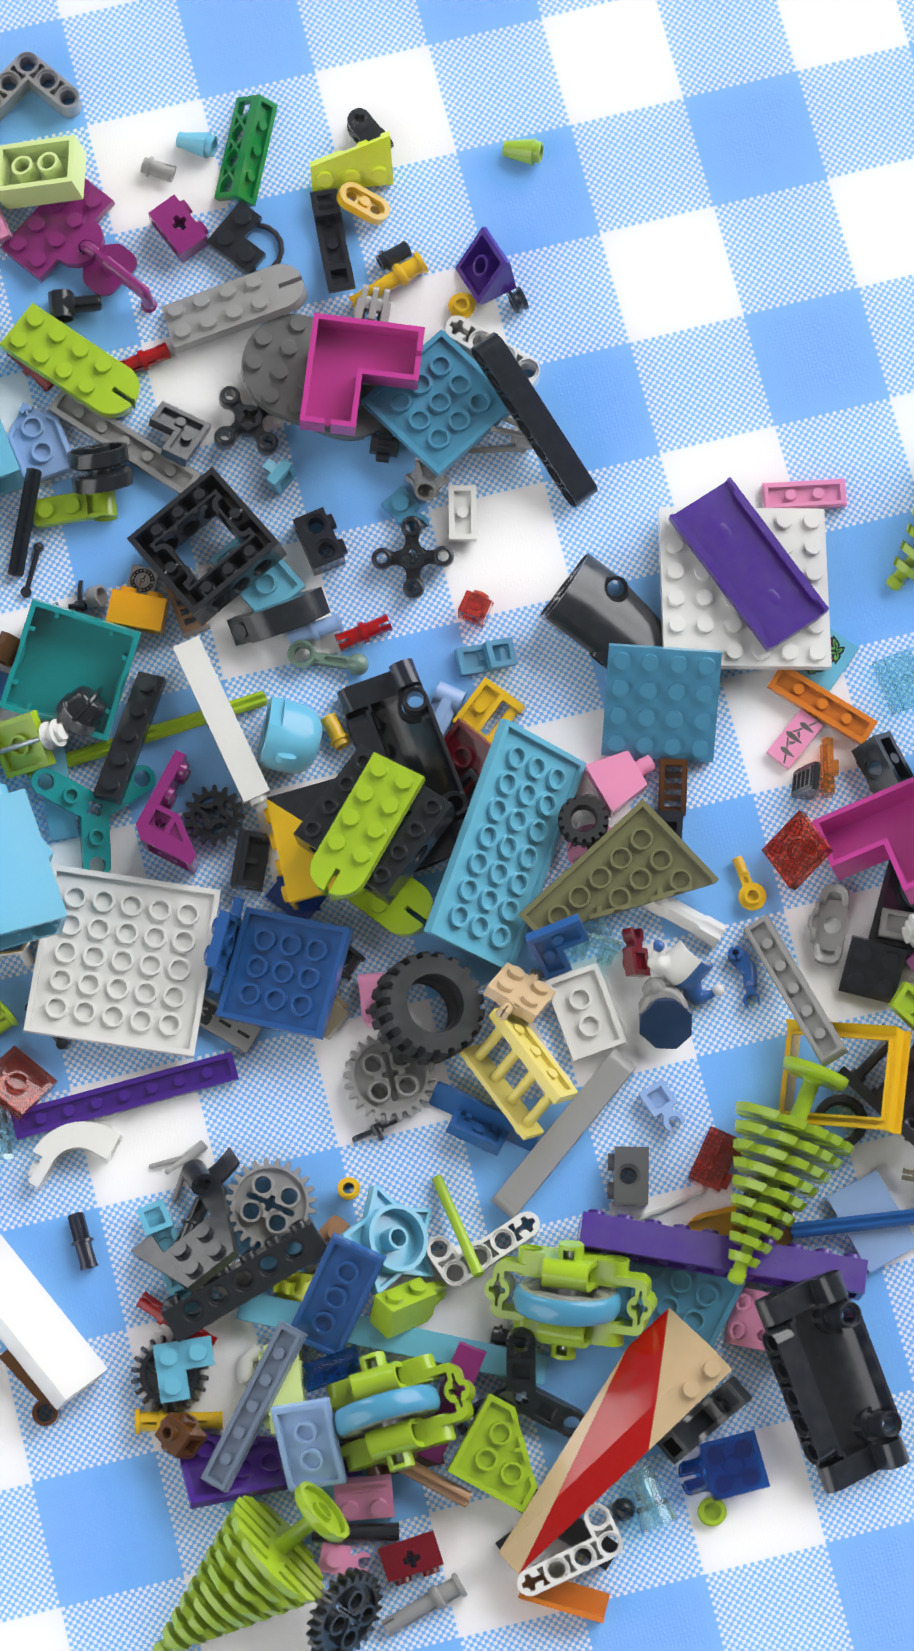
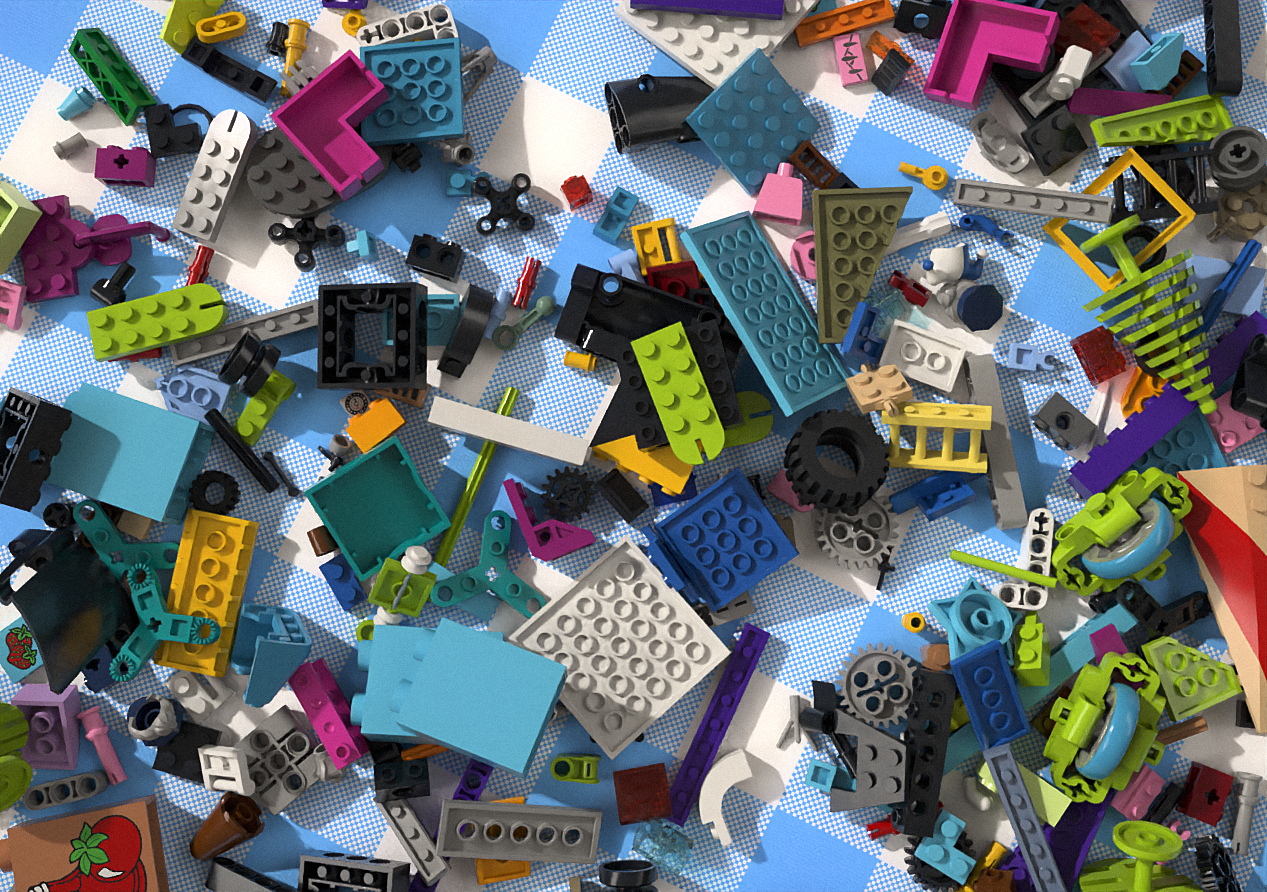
camera: 50 degrees left, 5 degrees up
(81, 710) = (415, 525): black piece -> none
(82, 1241) = (793, 839): black axle -> none
(129, 738) = (463, 507): black plate -> none
(184, 430) = (273, 284): plate -> none
(289, 736) = (558, 395): medium azure piece -> none
(308, 1443) = (1085, 806): light blue tile -> none
(330, 1369) = (1036, 743): clear blue plate -> none
(462, 513) = (501, 145): white plate -> none
(534, 419) = (479, 36): black beam -> none
(583, 803) = (791, 228): black tyre -> none
(797, 850) = (934, 118): clear red plate -> none

